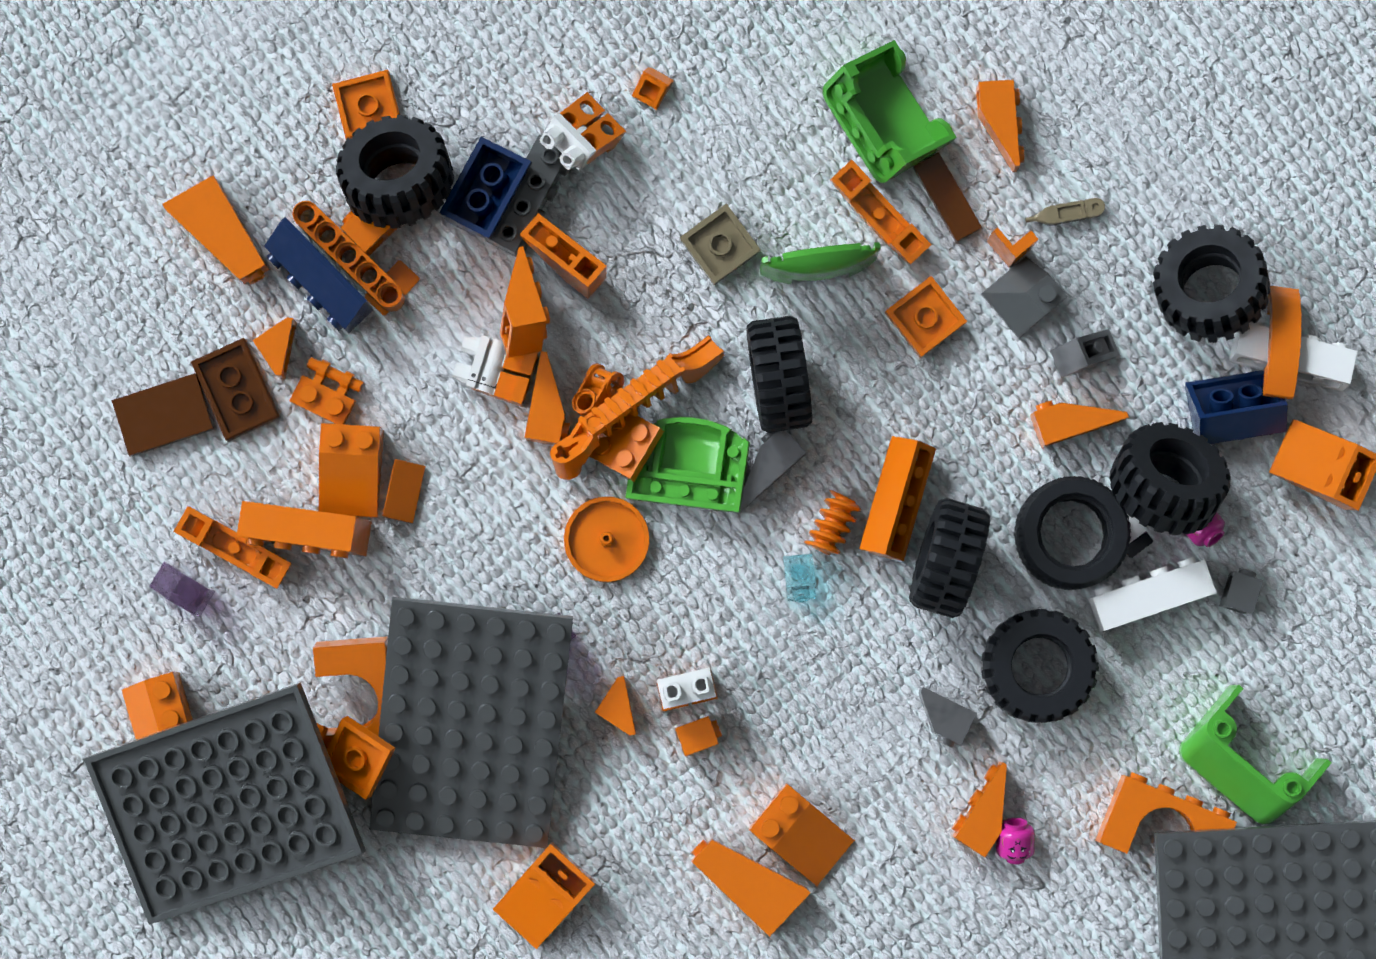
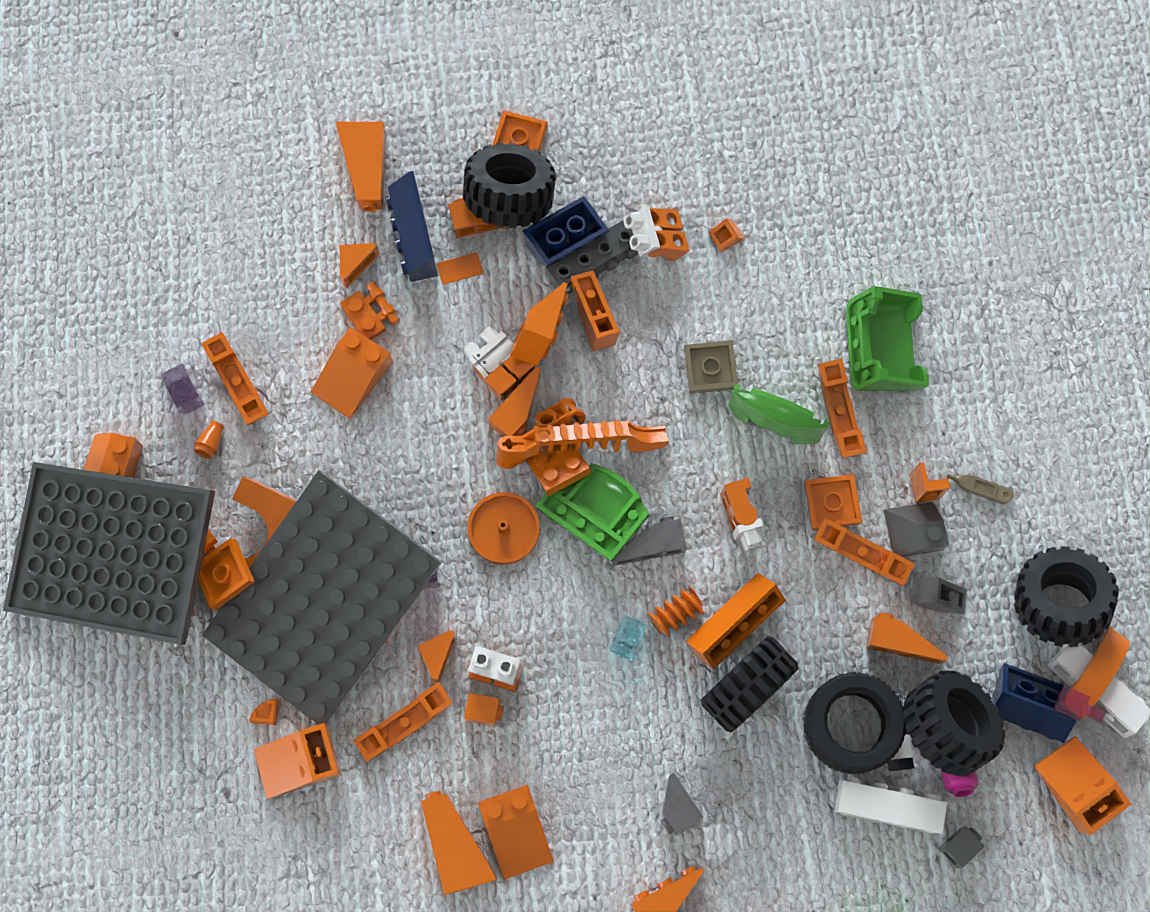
camera: 30 degrees right, 10 degrees down
(162, 415) = (247, 263): reddish brown tile -> none
(235, 389) = (307, 275): reddish brown tile -> none
(247, 629) = (209, 440): none -> orange cone
(304, 529) = (293, 394): orange wedge -> none
(341, 244) = (442, 238): orange beam -> none
(403, 491) = (379, 410): orange slope -> none
(481, 866) = (265, 713): none -> orange tile
(626, 794) = (403, 723): none -> orange slope
(779, 374) = (699, 475): black tyre -> none
(842, 386) = (742, 514): none -> orange hips
(947, 197) = (897, 427): reddish brown tile -> none
(986, 351) = (864, 551): none -> orange slope
(998, 115) = (967, 392): orange slope -> none
(1079, 657) = (807, 800): black tyre -> none
(1276, 390) = (1075, 703): none -> clear pink plate

